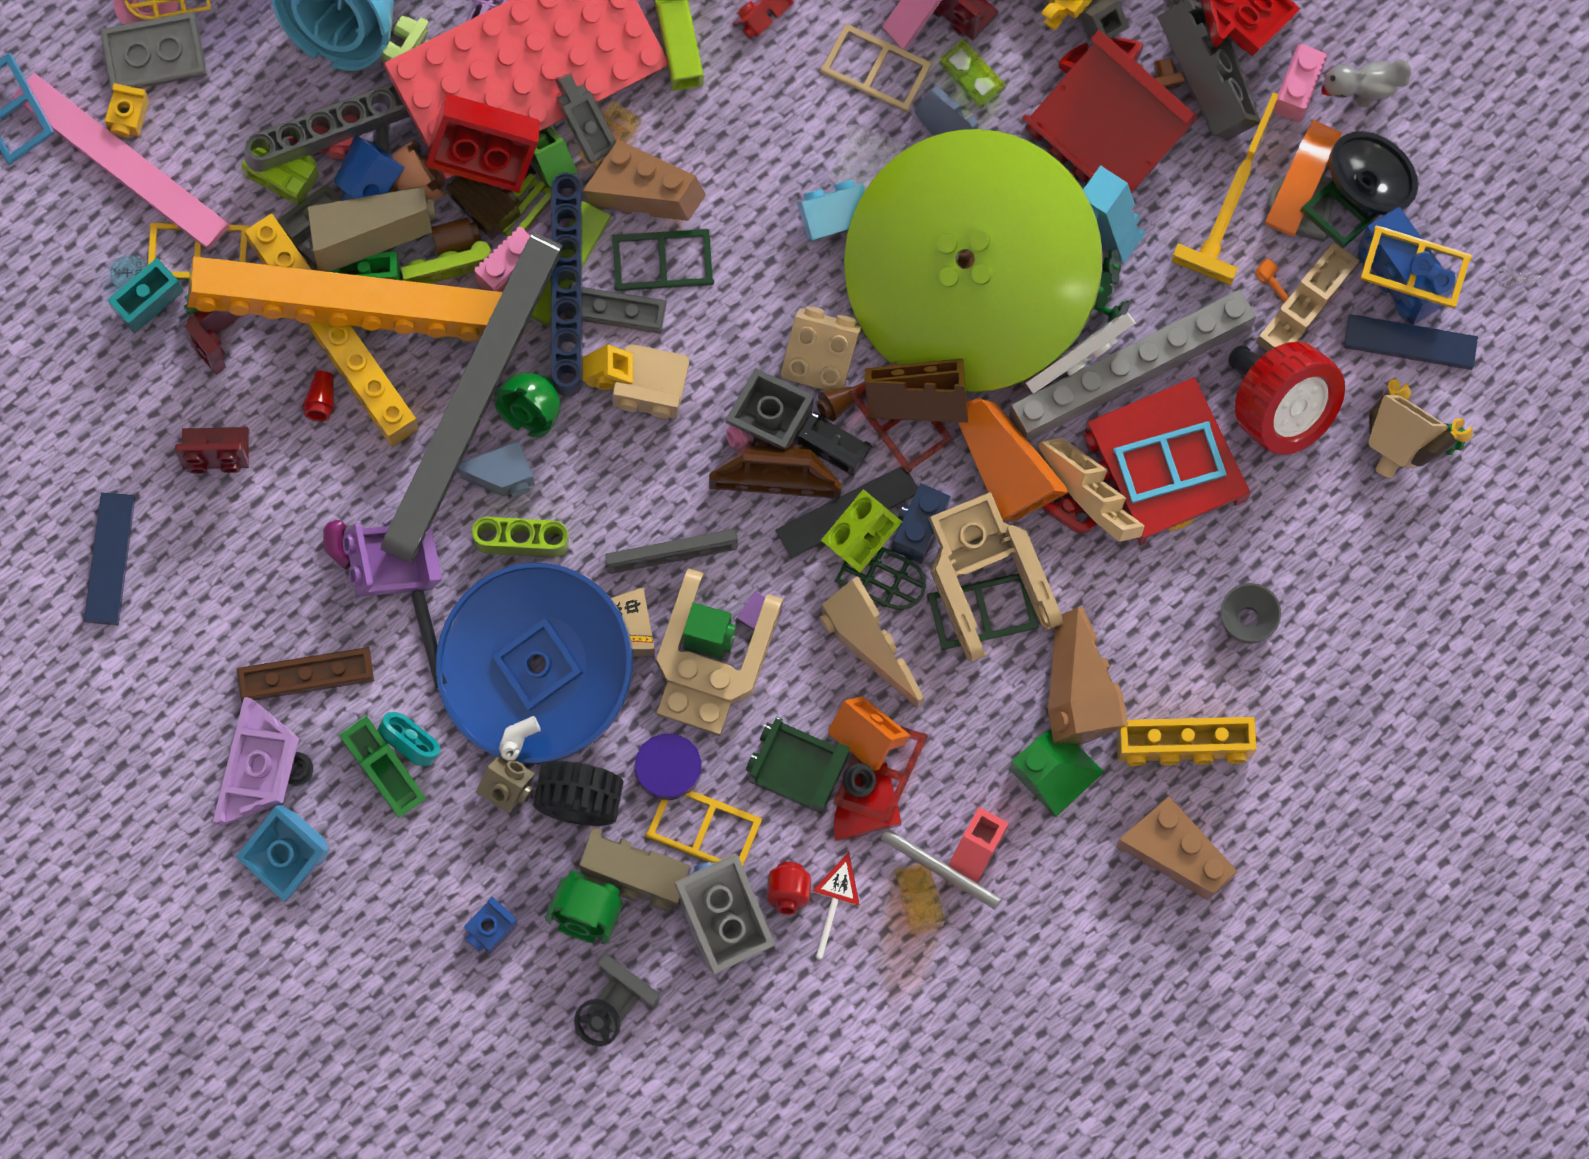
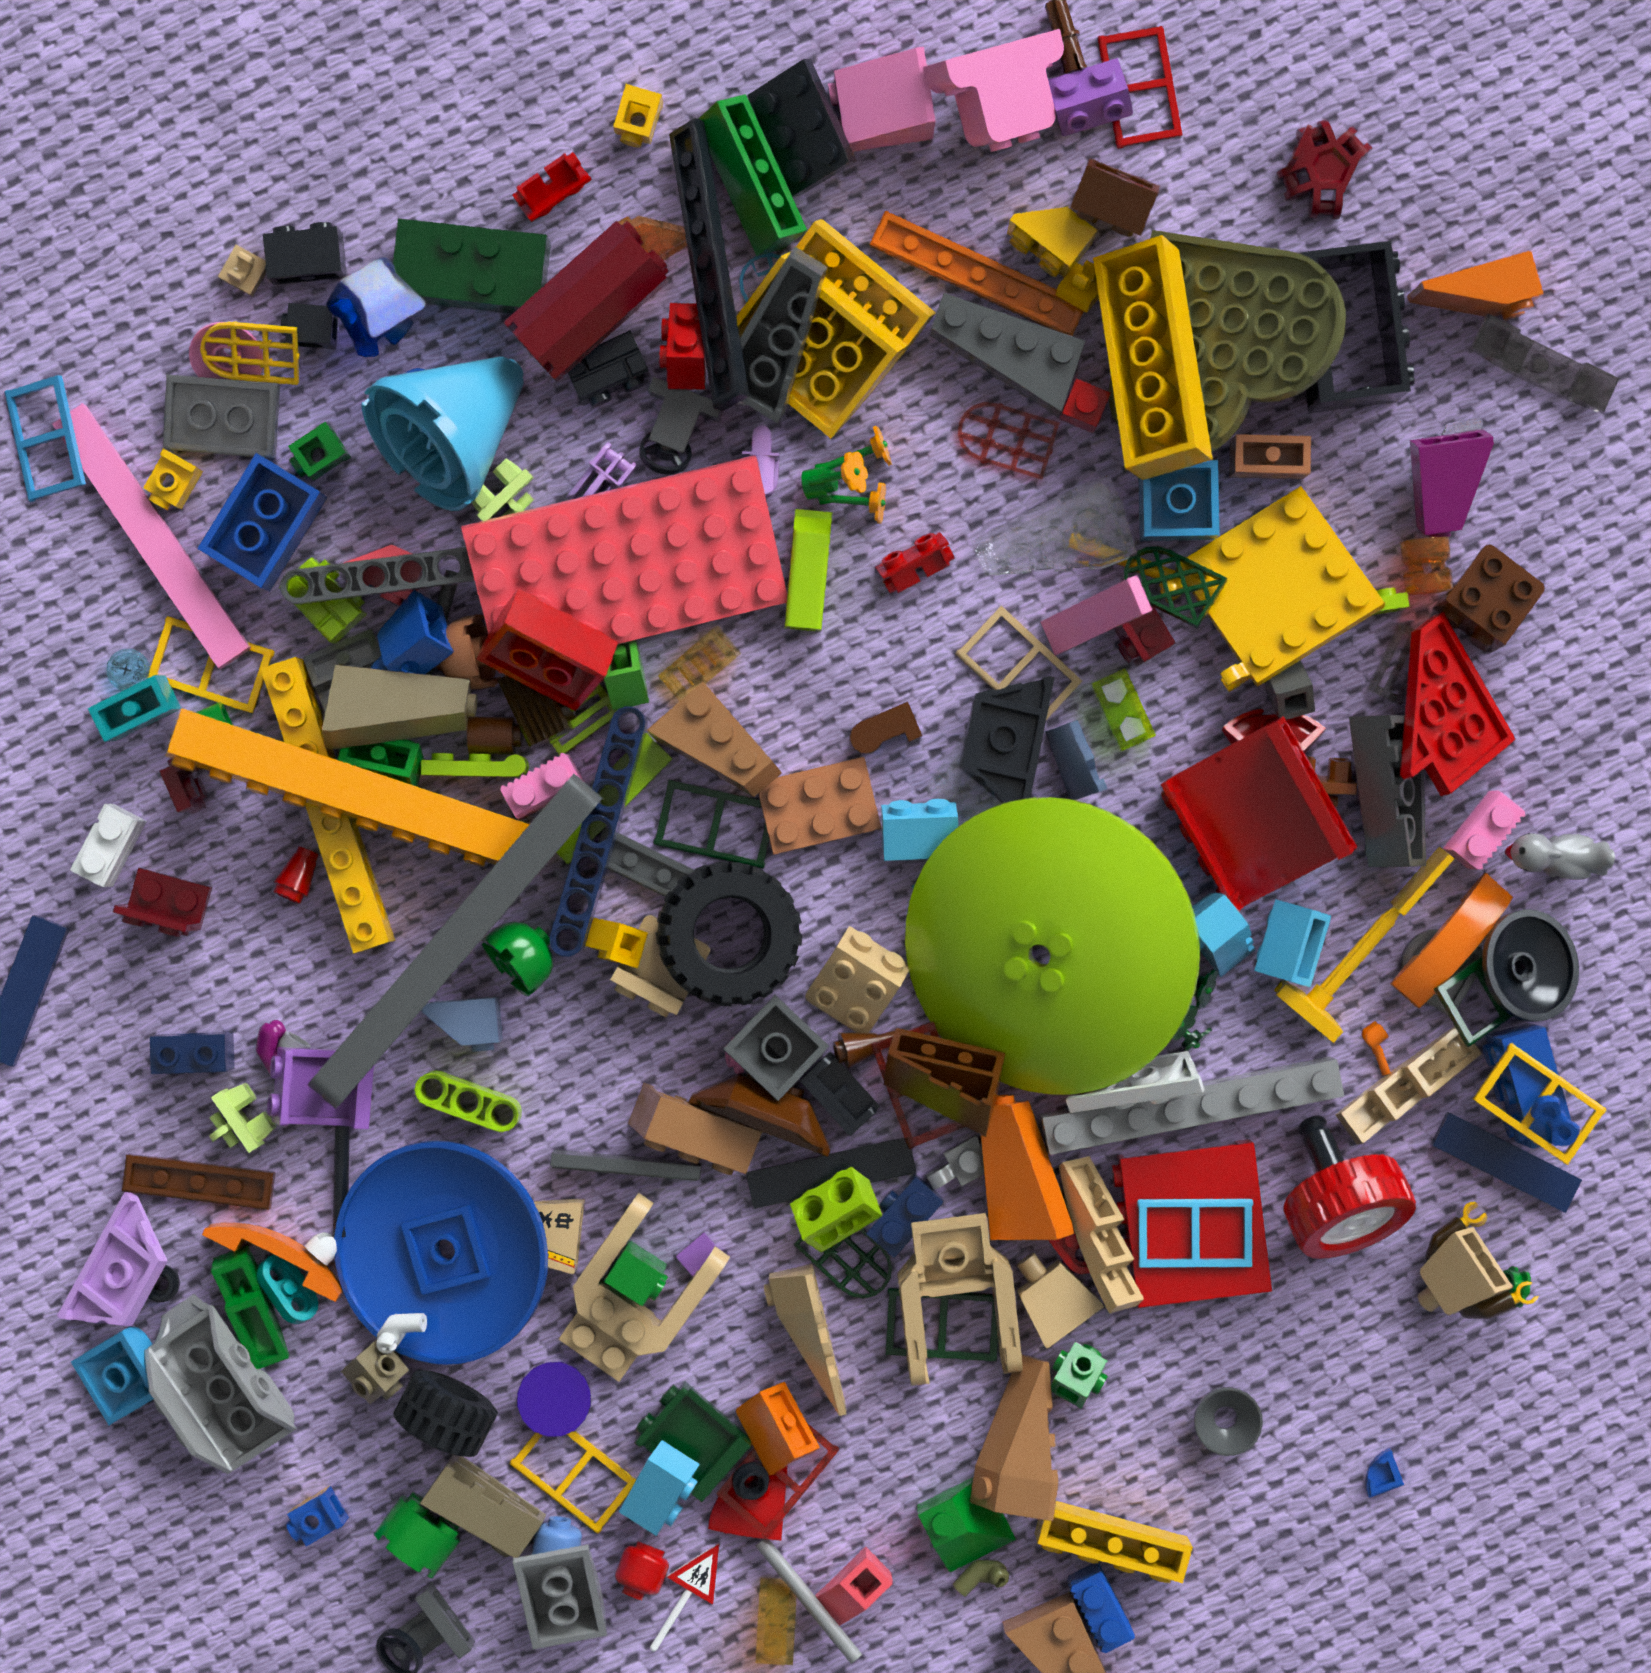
camera: 20 degrees right, 15 degrees up
(152, 414) = (108, 845): none -> white brick
(213, 120) = (262, 522): none -> blue brick
(243, 45) = (319, 438): none -> green brick
(271, 563) = (192, 1052): none -> dark blue brick
(317, 597) = (249, 1132): none -> yellowish green hips
(350, 705) = (319, 1276): none -> orange slope
(373, 831) = (212, 1390): none -> light grey slope
(429, 697) = (322, 1247): none -> white hinge
(584, 119) = (672, 648): dark grey hinge -> none
(710, 293) = (774, 957): none -> black tyre
(720, 502) = (693, 1131): none -> medium nougat wedge
(744, 219) = (819, 805): none -> nougat plate
(780, 141) = (871, 733): none -> reddish brown leg
(783, 807) = (659, 1488): none -> medium azure brick
(882, 116) = (1006, 738): none -> black wing
(957, 470) = (964, 1163): none -> light grey plate
(1071, 556) = (1055, 1298): none -> tan torso
(1083, 807) = (981, 1572): none -> olive arm
(1111, 603) = (1078, 1374): none -> brick
(1172, 211) = (1292, 943): none -> medium azure brick
(1195, 800) = (1100, 1607): none -> blue brick
(1398, 625) = (1383, 1474): none -> blue tile

